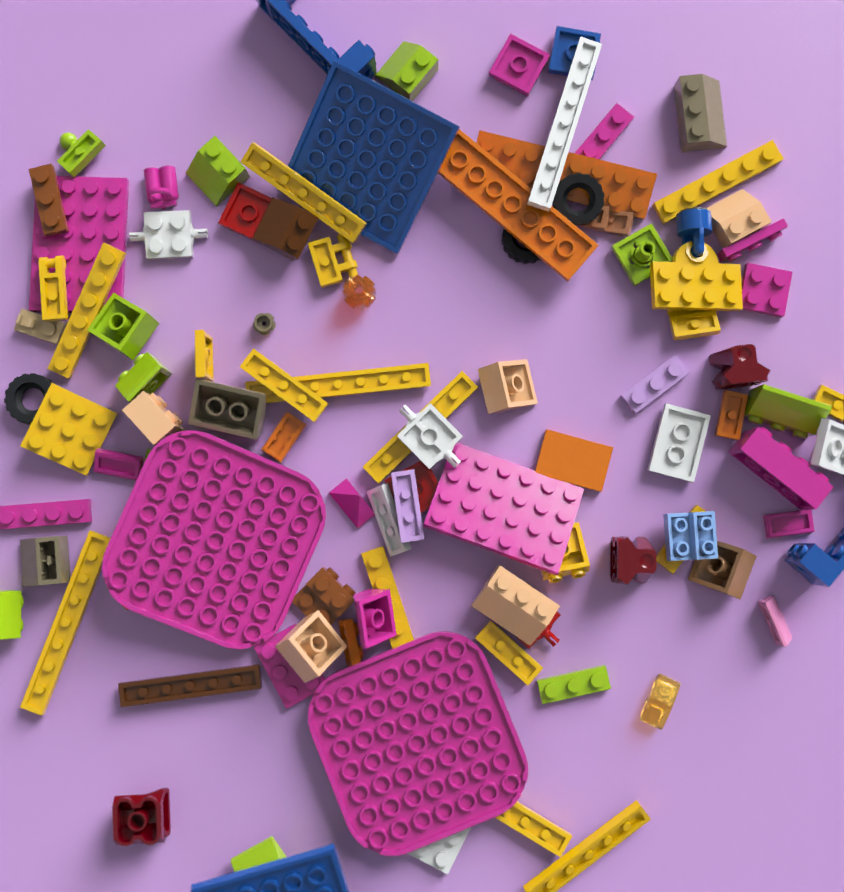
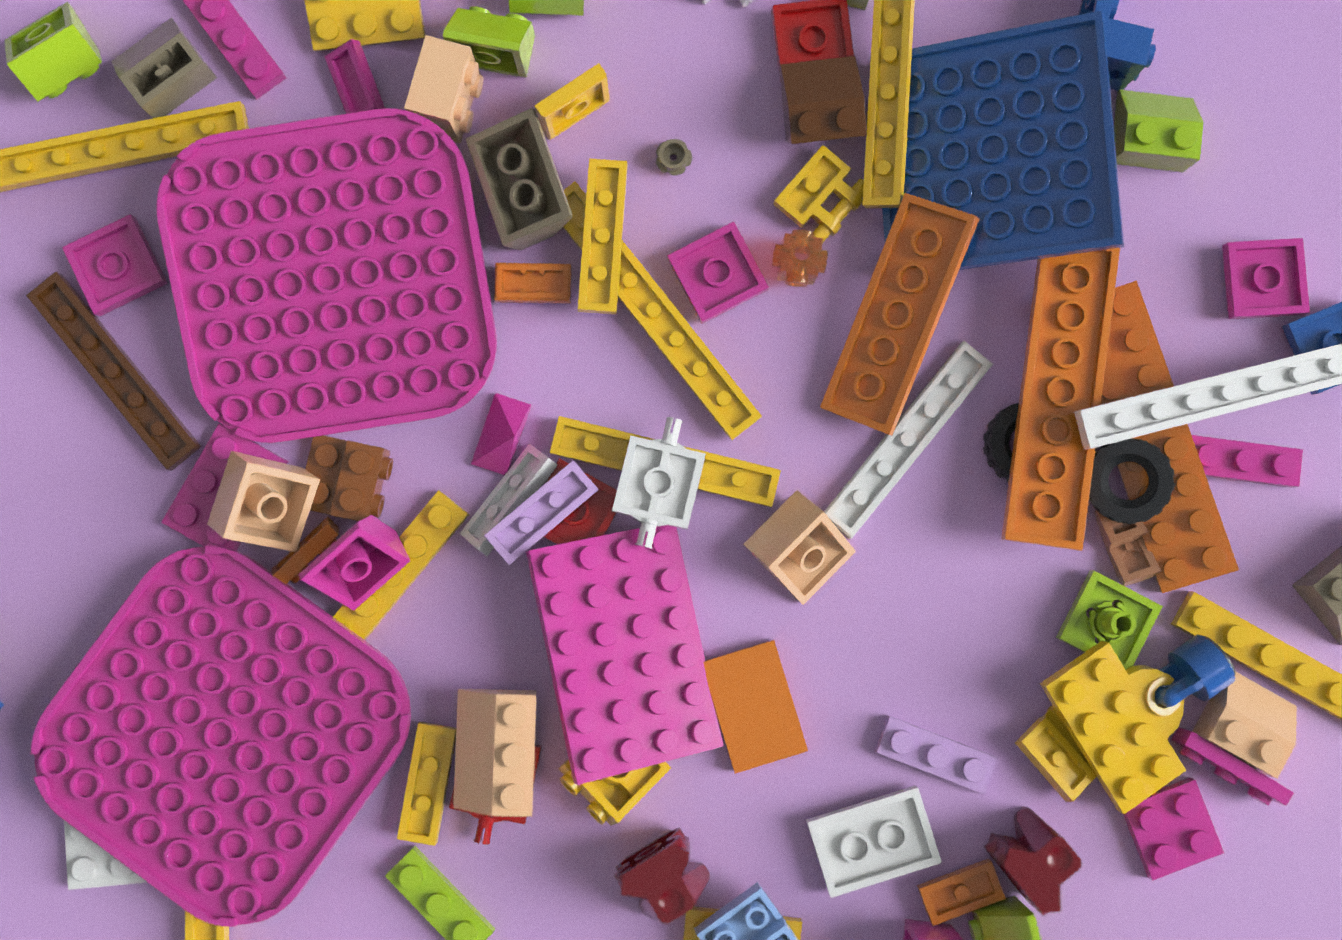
camera: 55 degrees right, 0 degrees up
(134, 650) = (114, 265): none -> dark pink plate
(339, 338) = (717, 272): none -> dark pink plate
(420, 259) = (899, 313): none -> orange plate
(486, 296) = (911, 436): none -> white tile

